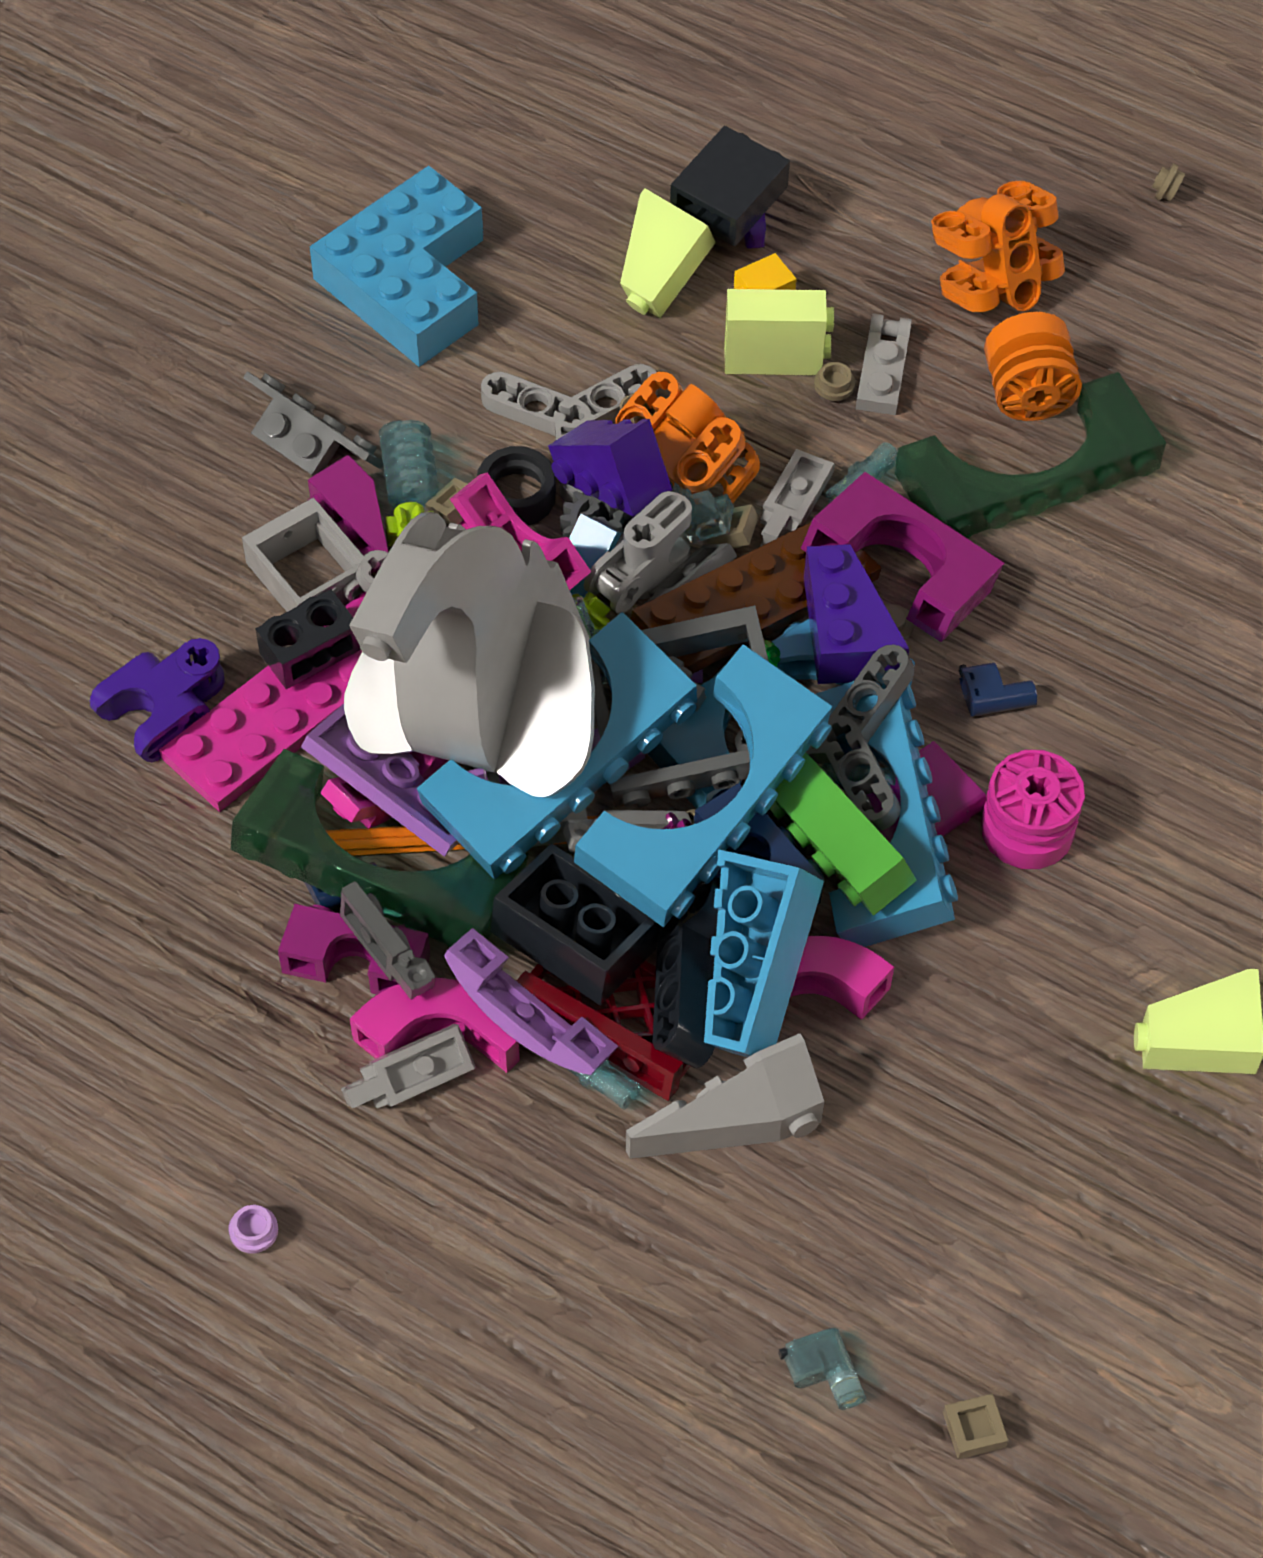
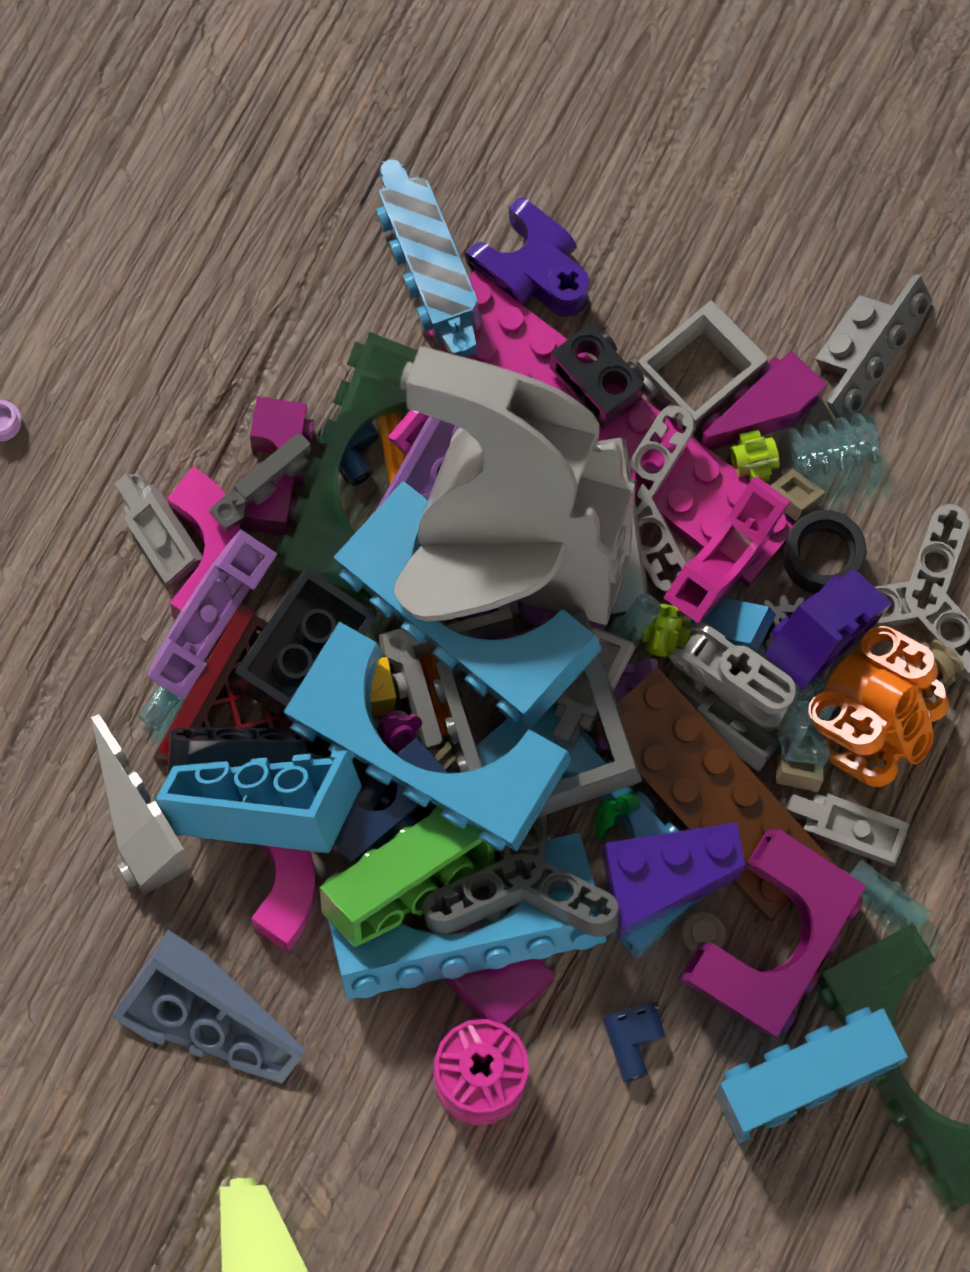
camera: 80 degrees right, 15 degrees up
(145, 779) = (430, 259): none -> dark azure hinge
(947, 1068) = (195, 1004): none -> sand blue wedge
(1048, 538) = (809, 1072): none -> dark azure wedge

